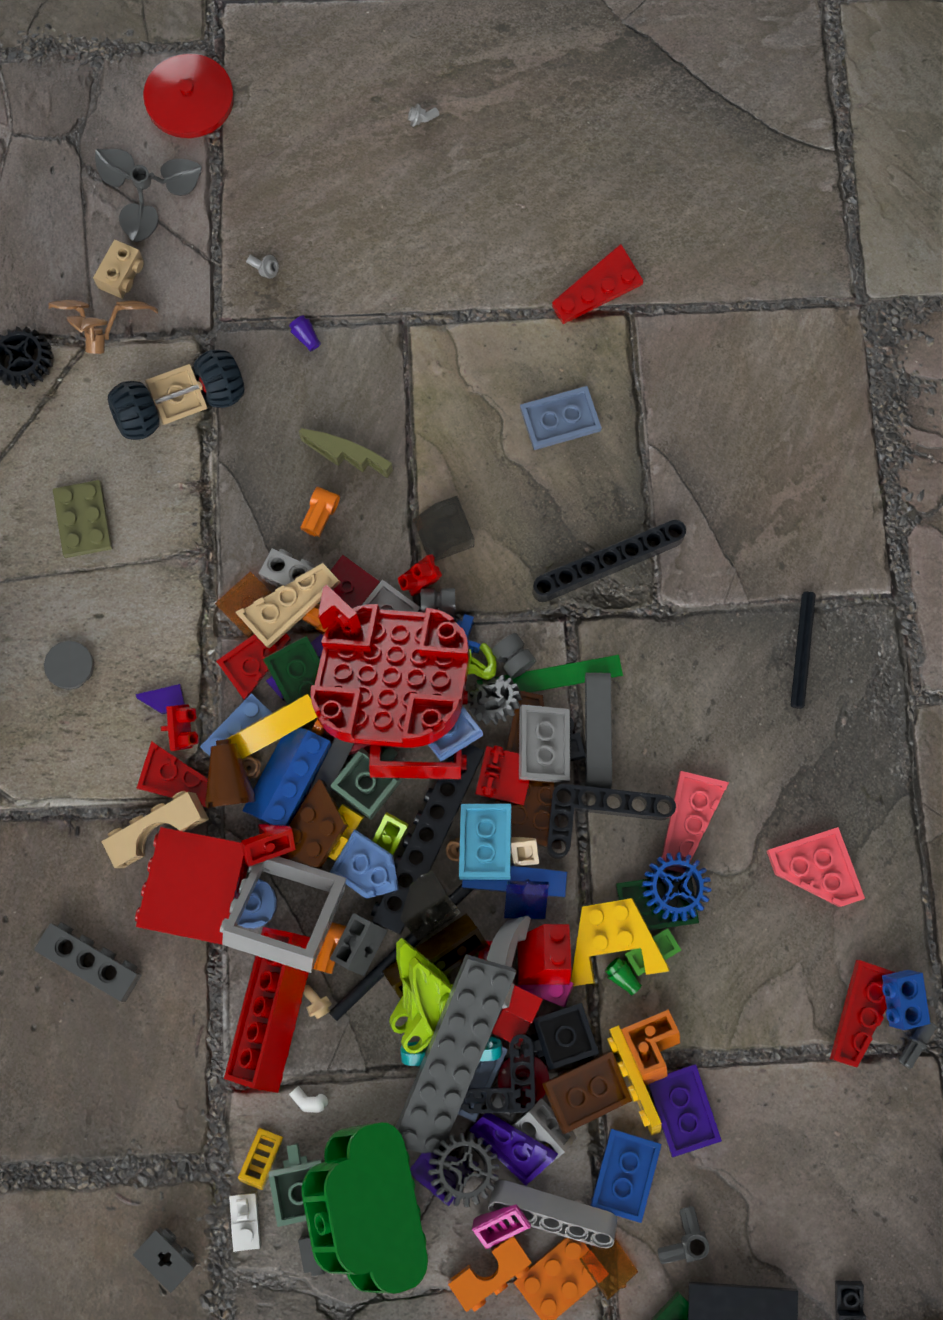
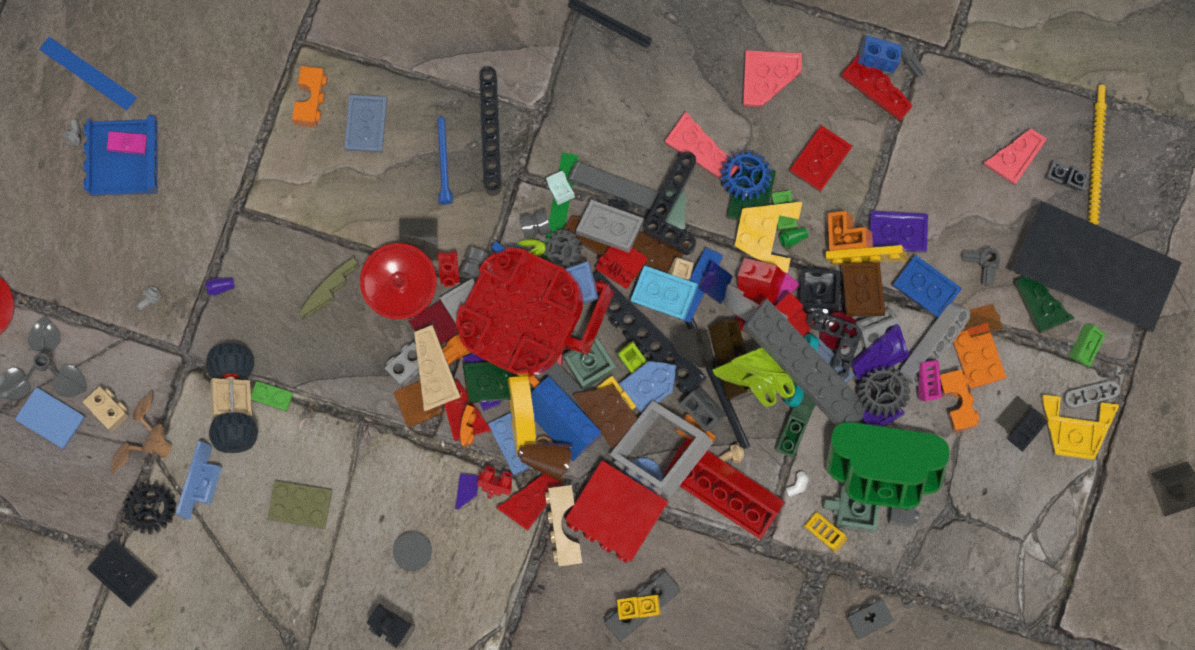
camera: 65 degrees left, 0 degrees up
(68, 399) = (200, 481): none -> medium blue bracket
(79, 957) = (638, 607): none -> yellow slope
(90, 218) = (50, 418): none -> medium blue tile
(198, 439) = (271, 396): none -> bright green plate
(226, 670) = (466, 432): none -> orange slope
(245, 1222) = (864, 558): white plate -> none
(270, 843) = (607, 445): red slope -> none
(322, 505) = (364, 322): orange piece -> none
(334, 608) = (453, 332): red slope -> none
(376, 1070) = (796, 427): none -> dark green slope
(382, 524) = (398, 281): none -> red dish
(414, 174) = (120, 172): none -> blue panel
(432, 173) = (127, 143): none -> dark pink plate
(451, 849) = (660, 322): medium nougat plate -> none
(498, 106) = (88, 73): none -> blue sticker
(510, 539) = (445, 196): none -> blue piece
(548, 350) = (308, 112): none -> orange arch
(571, 667) = (560, 187): none -> light aqua bracket
(592, 822) = (677, 216): none -> sand green slope
(601, 284) = (271, 54): red wing -> none
(738, 974) = (821, 158): none -> red plate
(847, 1233) = (1016, 157): none -> coral wing

